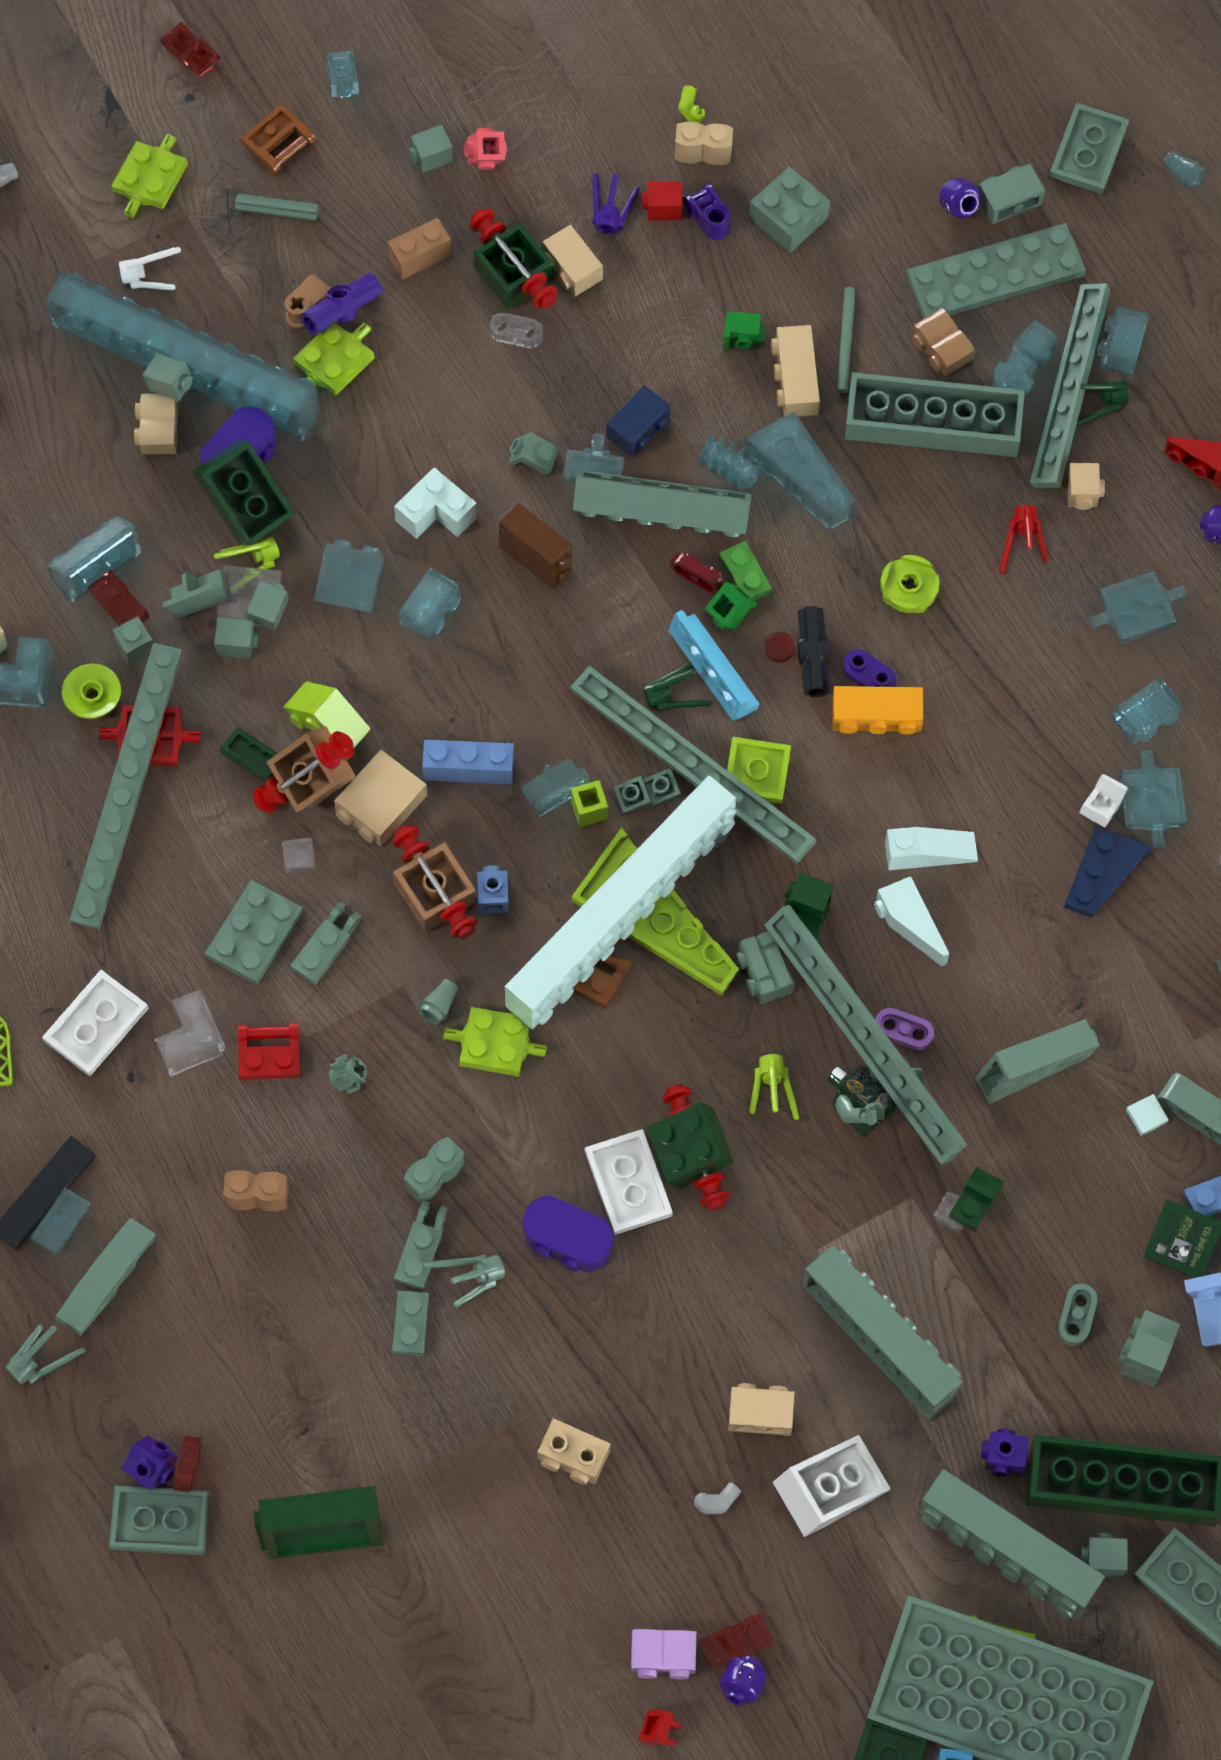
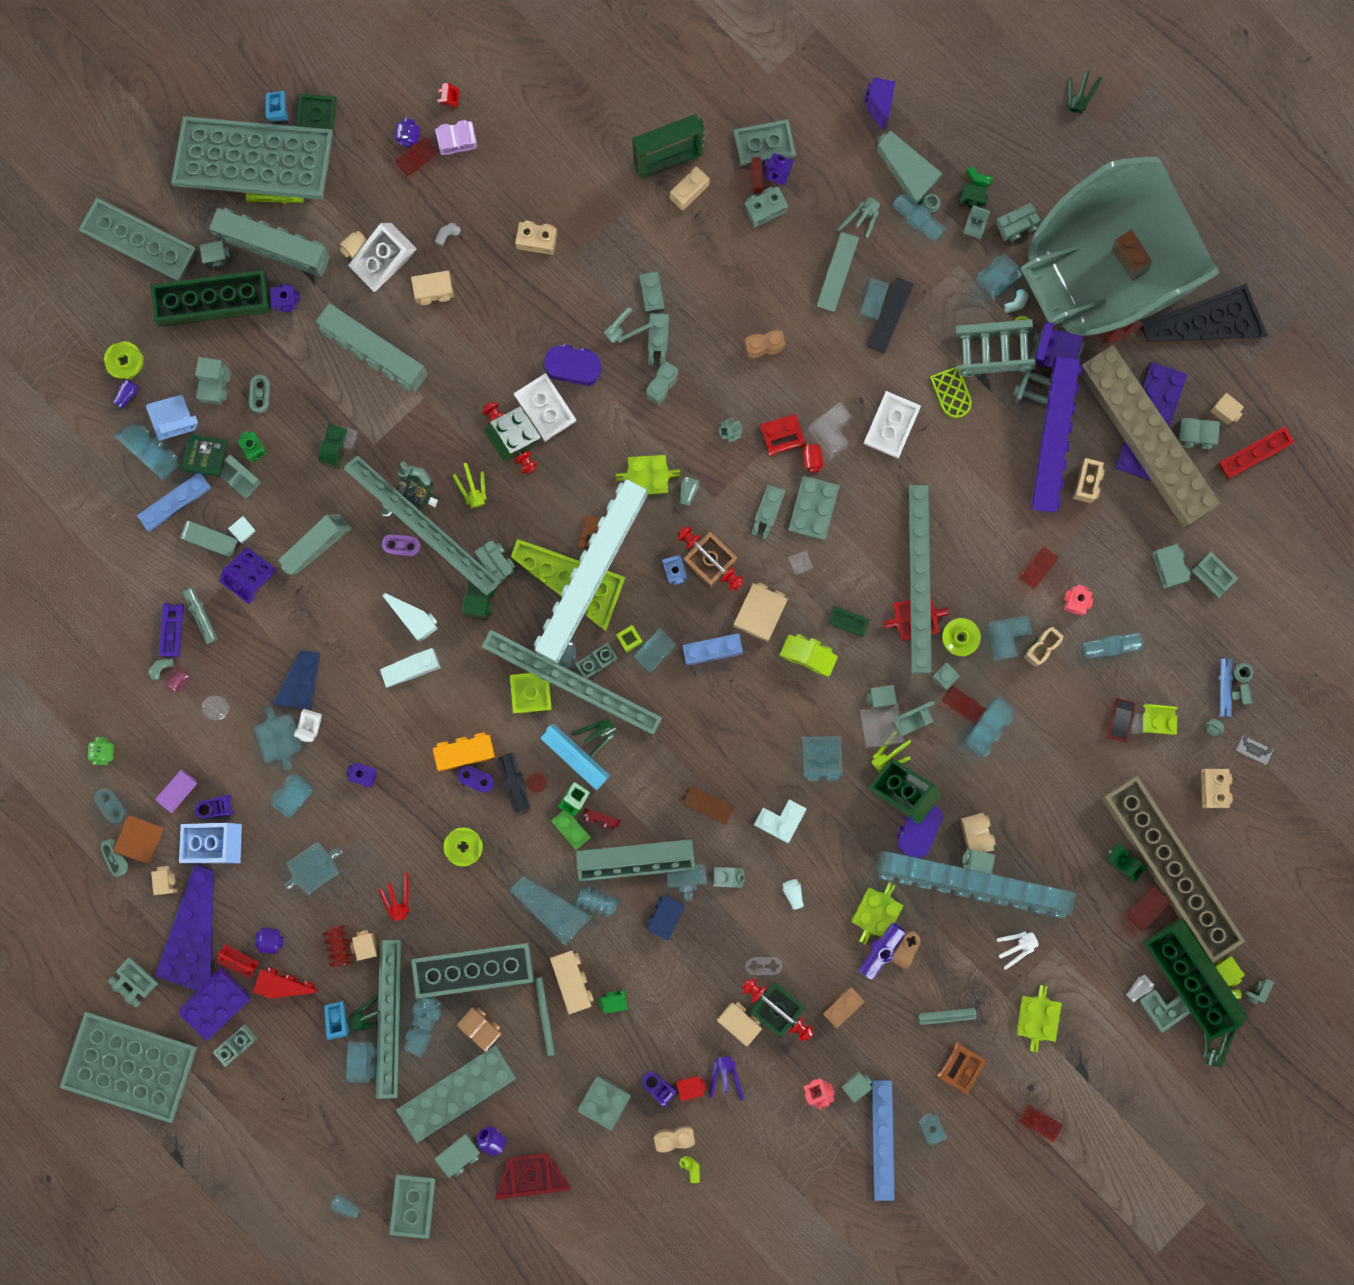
camera: 165 degrees right, 15 degrees up
(188, 1410) = (765, 206): none -> sand green brick
(232, 1001) = (813, 458): none -> red brick
(268, 604) = (867, 719): sand green brick -> none
(303, 1468) = (689, 188): none -> tan brick
(307, 771) = (810, 611): medium nougat brick -> none
(414, 80) = (883, 1140): none -> medium blue plate
(429, 604) = (766, 751): clear light blue brick -> none
(445, 414) = (793, 892): none -> light aqua cone
(875, 1516) = (352, 244): none -> tan brick
(915, 146) = (531, 1176): none -> dark red wing
(1037, 715) = (362, 774): none -> dark purple brick
(1106, 1247) = (256, 450): none -> green brick
(1122, 493) = (337, 946): none -> clear red piece
(1134, 1195) = (239, 477): none -> sand green panel
(1146, 395) = (336, 1020): none -> dark azure slope
(1150, 1043) = (246, 574): none -> dark purple bracket

